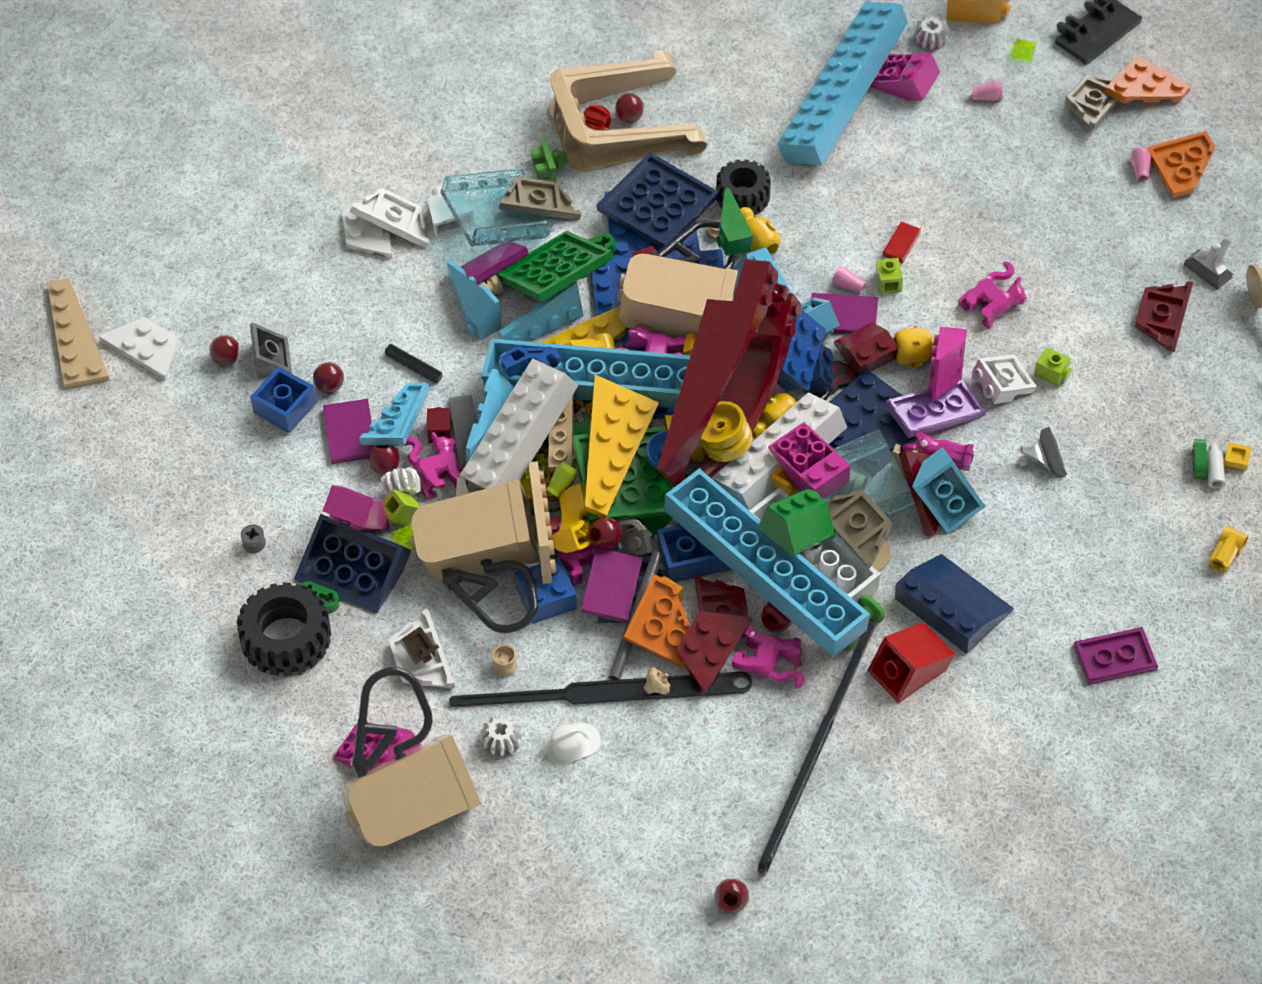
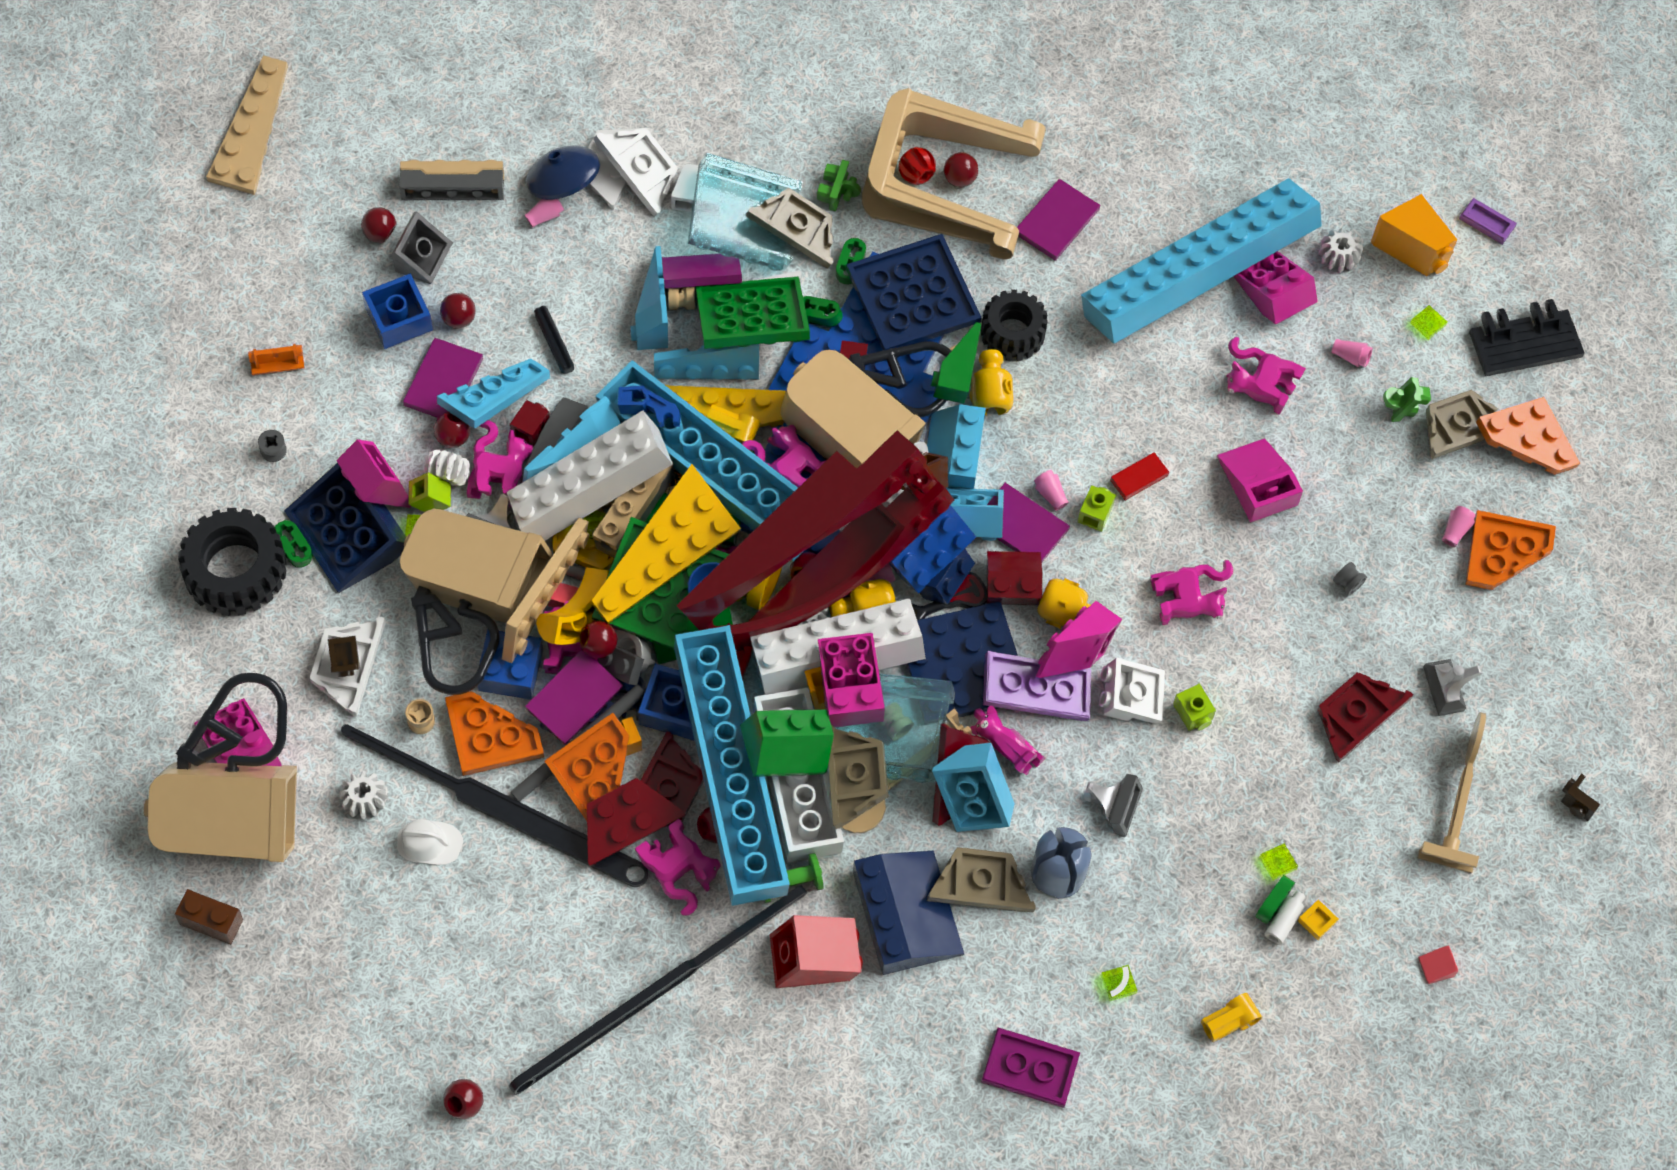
camera: 25 degrees right, 10 degrees up
(144, 344) = (312, 175): white wing -> none
(212, 479) = (276, 359): none -> orange hinge
(257, 295) = (451, 180): none -> dark grey piece
(339, 248) = (562, 172): none -> dark blue dish
(343, 281) = (544, 211): none -> bright pink cone
(447, 878) = (209, 916): none -> reddish brown brick
(561, 479) = (597, 554): lime cone -> none
(564, 647) = (489, 735): none -> orange plate
(588, 206) = (845, 258): none -> green beam
(656, 682) = (548, 827): tan piece -> none
(720, 108) = (1057, 219): none -> magenta tile
(726, 433) = (786, 599): yellow wheel -> none
(945, 136) = (1269, 372): none -> dark pink animal
(988, 200) = (1261, 479): none -> dark pink slope
(991, 553) = (982, 880): none -> dark tan wing
(1040, 508) = (1061, 862): none -> sand blue cylinder
(1048, 101) = (1406, 399): none -> bright green hips
(1095, 232) = (1350, 578): none -> dark grey wheel
(1134, 569) = (1119, 983): none -> clear neon green tile
(1182, 435) = (1278, 861): none -> clear neon green tile

